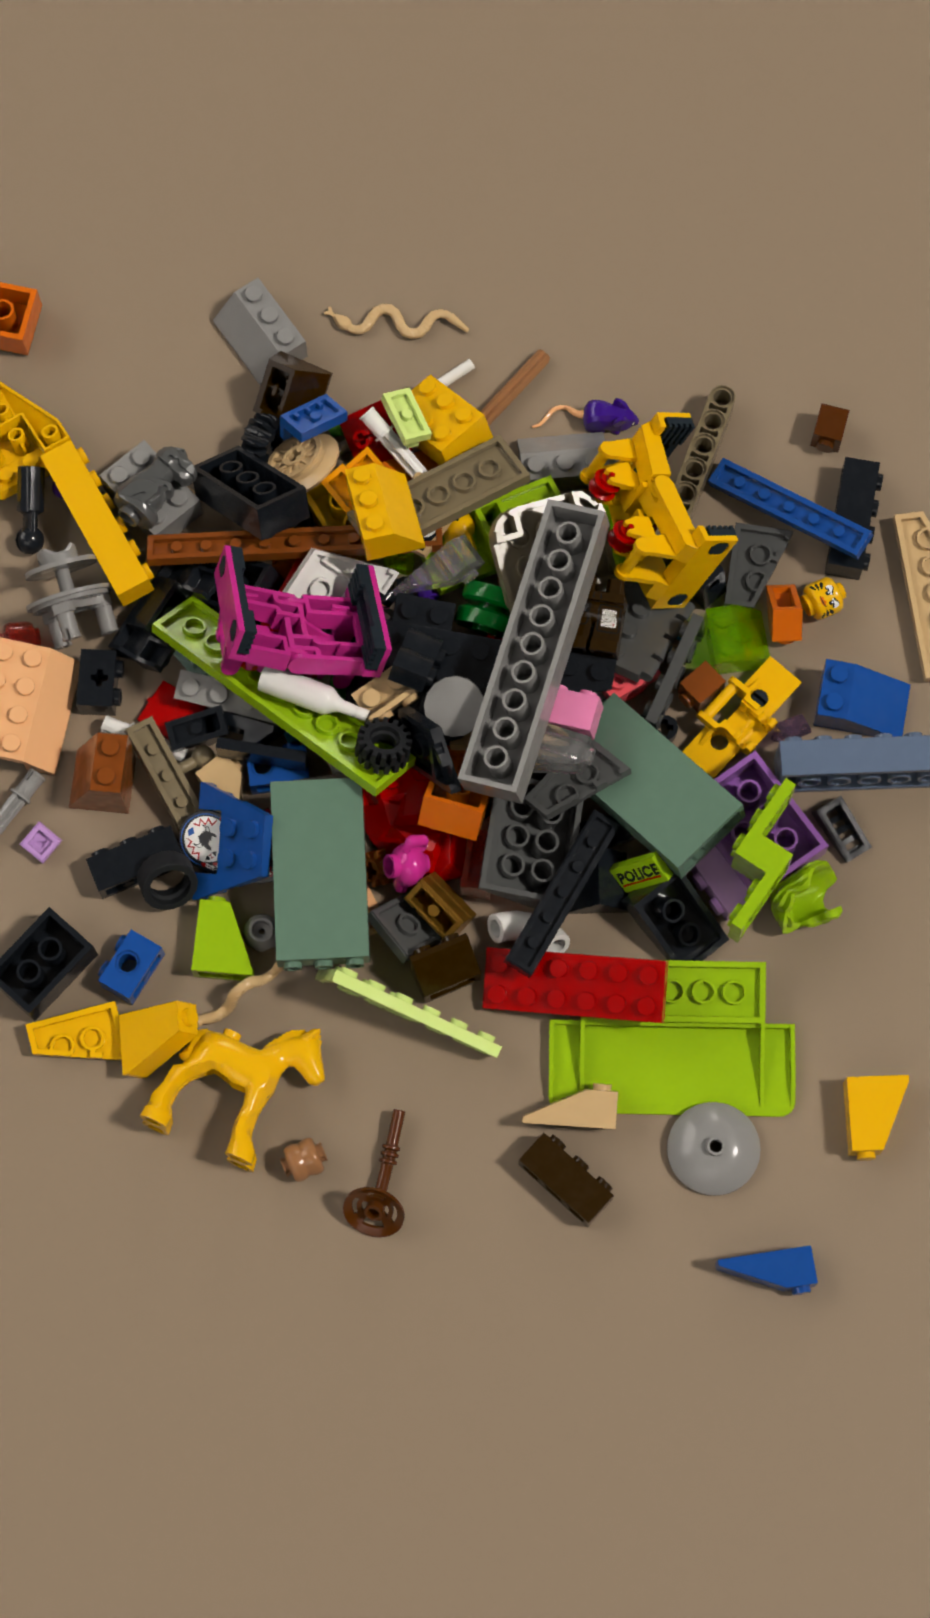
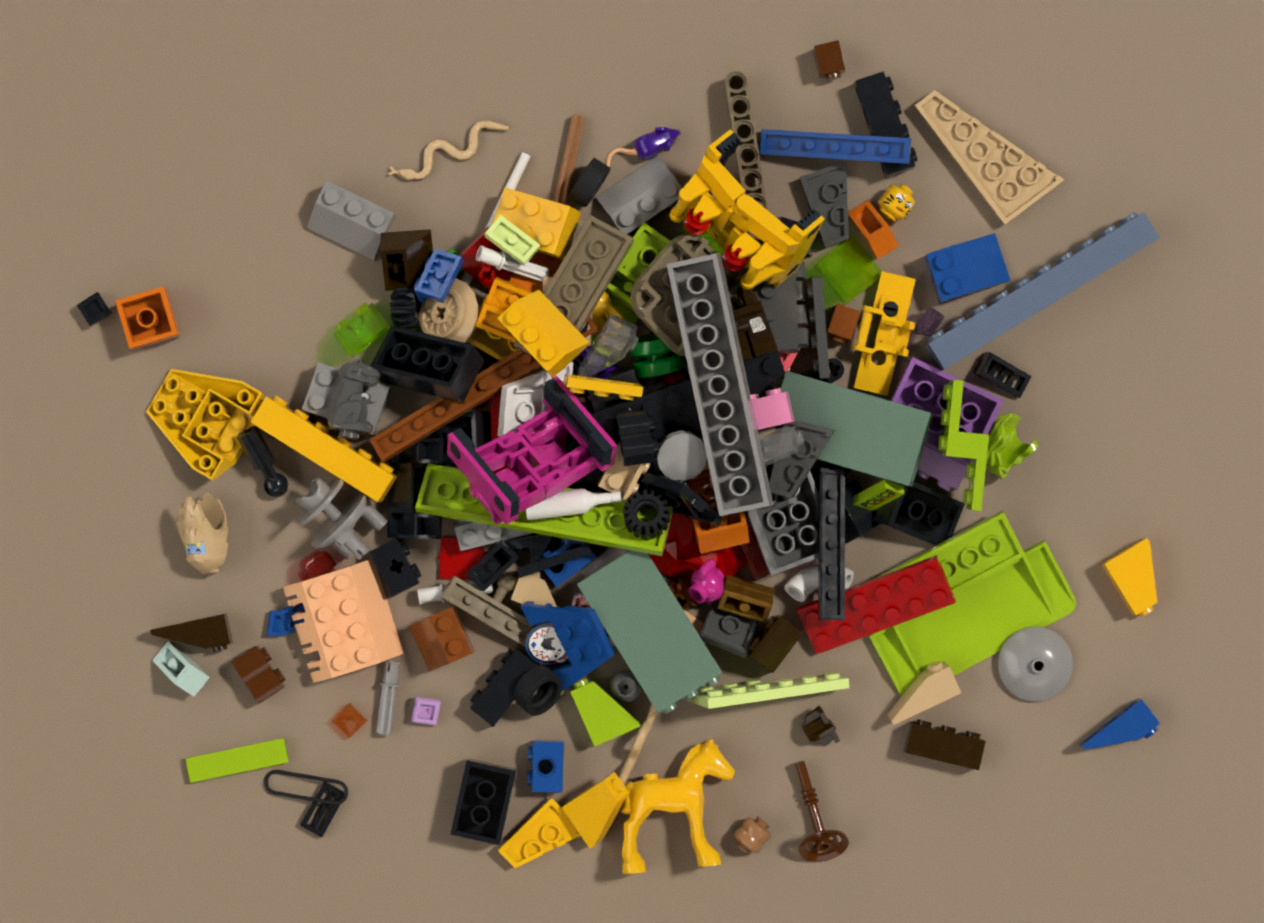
camera: 35 degrees left, 15 degrees up
(206, 436) = (361, 329): none -> clear neon green slope
(413, 597) = (602, 387): none -> yellow plate
(440, 1085) = (819, 728): none -> dark brown piece
(518, 414) = (589, 182): none -> black tyre

